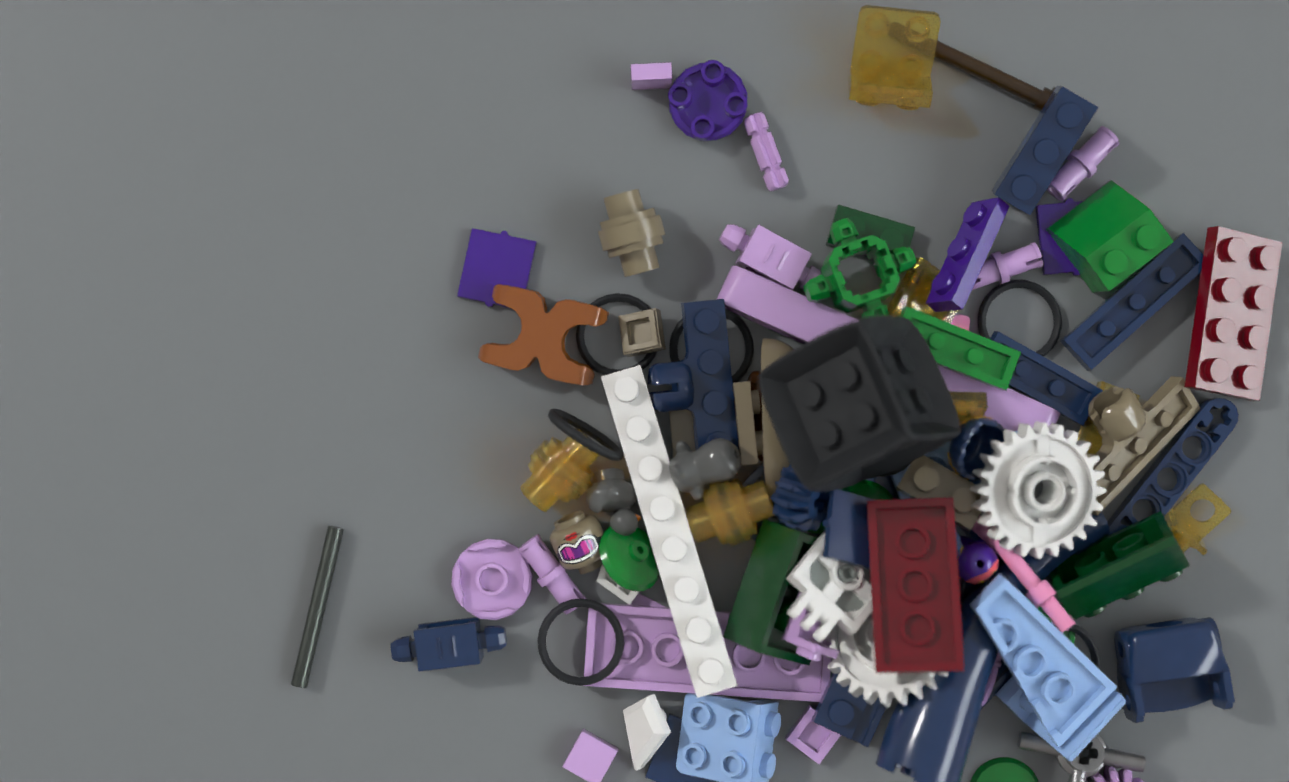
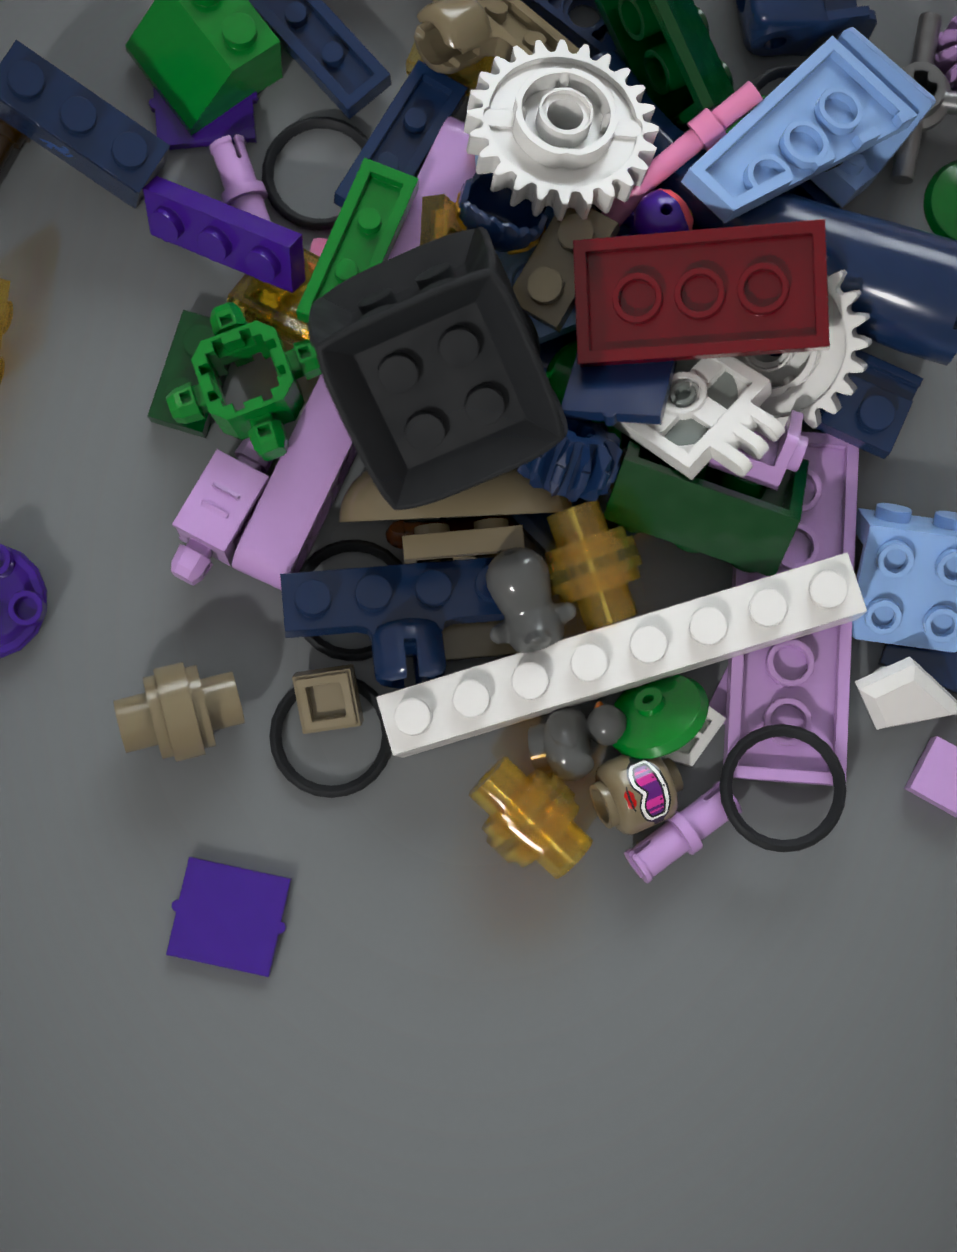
camera: 95 degrees left, 5 degrees down
(317, 606) = (736, 1191): pearl dark grey bar -> none
(448, 644) = (789, 987): dark blue piece -> none
(492, 579) = (691, 923): lavender tile -> none
(543, 335) = (329, 845): dark orange piece -> none
(606, 448) = (481, 774): black tyre -> none
(766, 151) = (66, 518): lavender axle -> none
(810, 737) = (907, 464): lavender tile -> none
(1082, 163) = (97, 76): lavender pin -> none

